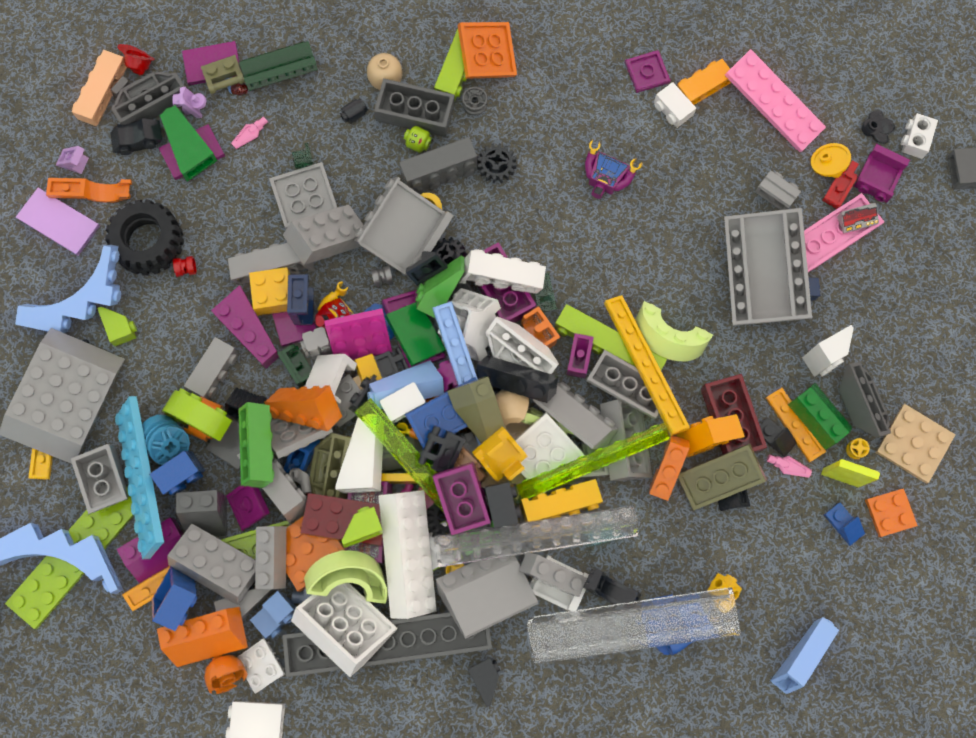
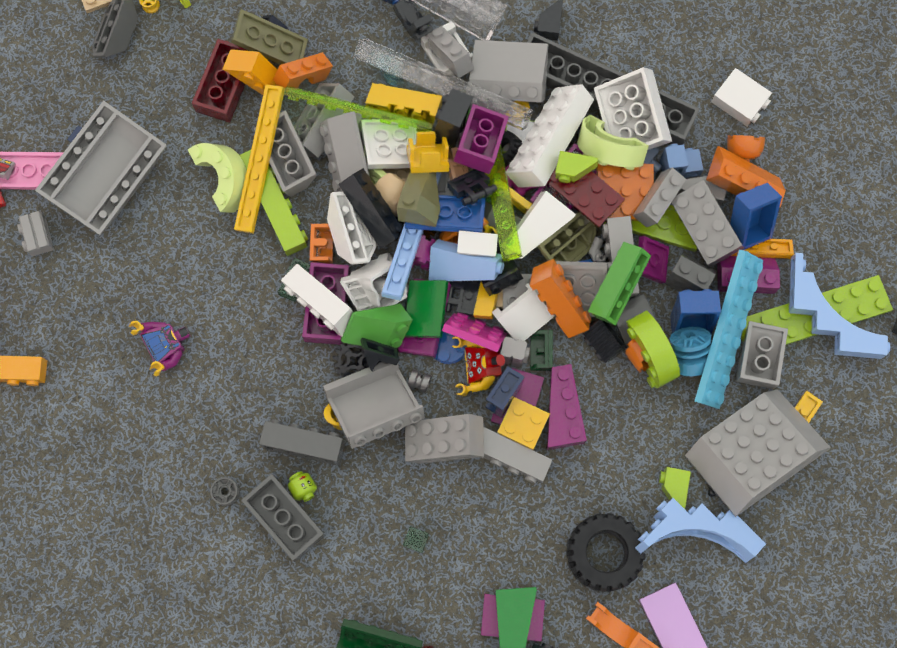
camera: 140 degrees left, 0 degrees up
(184, 266) = (584, 503): red wheel -> none
(211, 369) = (615, 393): light grey brick -> none
(249, 133) = (448, 601): bright pink piece -> none
(261, 665) = (712, 134): white hinge -> none
(302, 193) = (438, 502): light grey plate -> none
(353, 111) = (340, 555): black brick -> none
(383, 66) = (285, 578): tan cylinder -> none
(453, 70) = (214, 538): lime brick -> none
(487, 49) = (178, 528): orange plate -> none
(490, 157) = (254, 412): black gear -> none
(580, 356) = (306, 202): magenta slope -> none
(647, 71) = (52, 418): magenta tile -> none
(674, 105) = (57, 367): white brick -> none
(777, 438) = (202, 50): black slope -> none
(789, 466) = (209, 24): bright pink piece -> none
(805, 440) = (179, 50): light orange tile -> none
(820, 416) = (156, 39): green slope -> none
(829, 353) = (109, 73): white slope -> none

